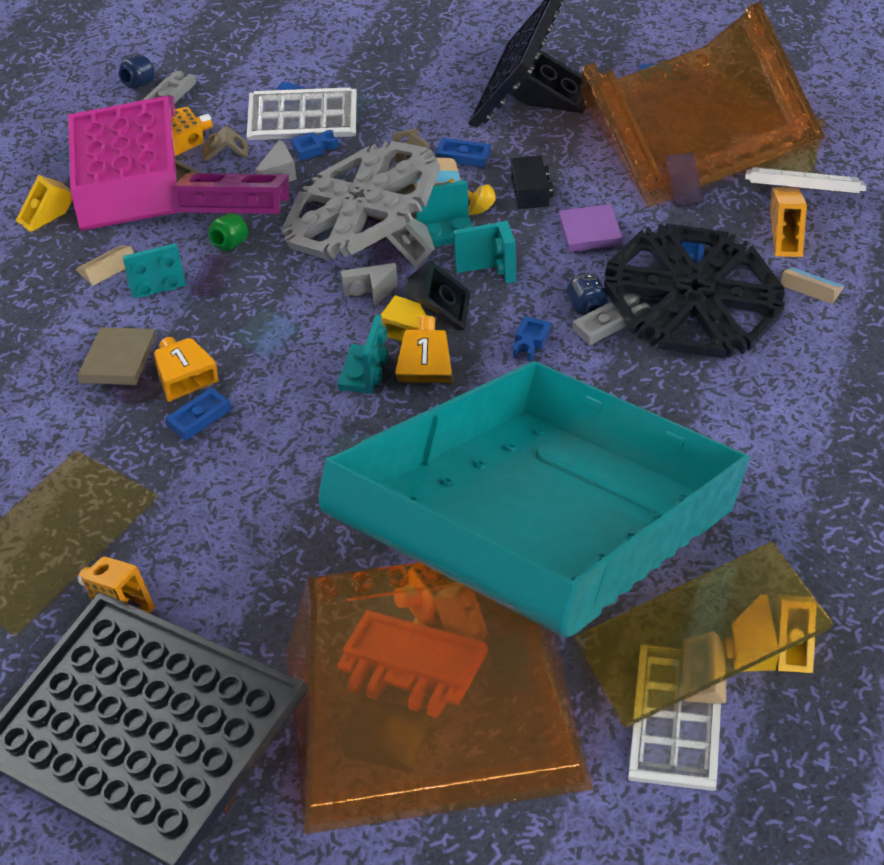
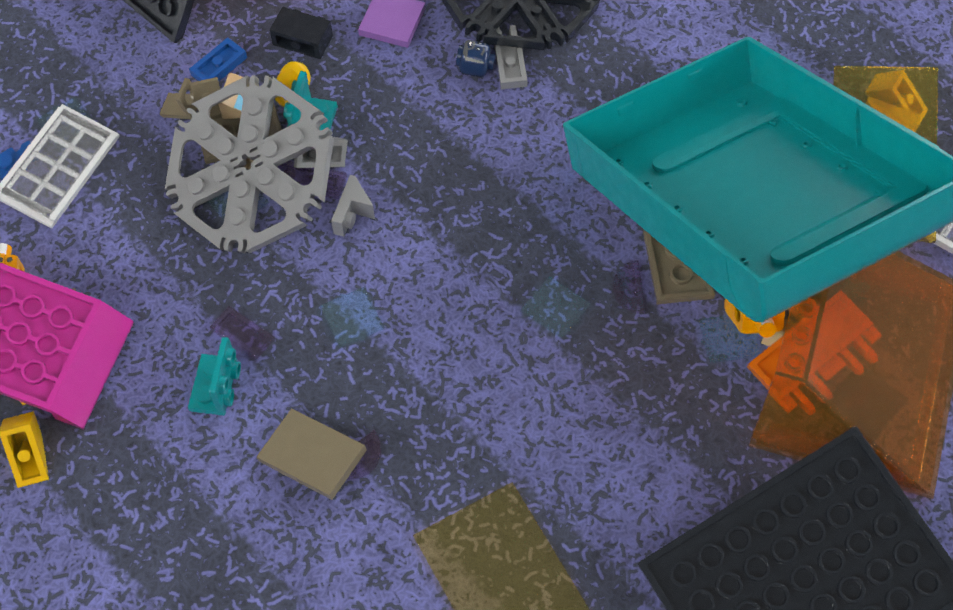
camera: 65 degrees left, 15 degrees up
(104, 265) = (157, 421): tan slope -> none
(118, 581) = (638, 541): light orange torso -> none
(183, 367) = (365, 402): light orange torso -> none
(198, 414) = (435, 410): blue plate -> none
(224, 138) = (48, 251): dark tan bracket -> none
(228, 231) = (195, 294): green head -> none
(230, 193) = (152, 265): magenta window -> none
(278, 162) = (127, 213): light grey slope -> none
(312, 145) = (111, 177): blue plate -> none
(363, 363) = (455, 250): teal bracket -> none
(401, 316) = (425, 199): yellow slope -> none
(424, 354) = (480, 202): light orange torso -> none
(439, 294) = (403, 162): black slope -> none
(485, 248) = (387, 87): teal bracket -> none
(531, 335) = (495, 118): blue plate -> none

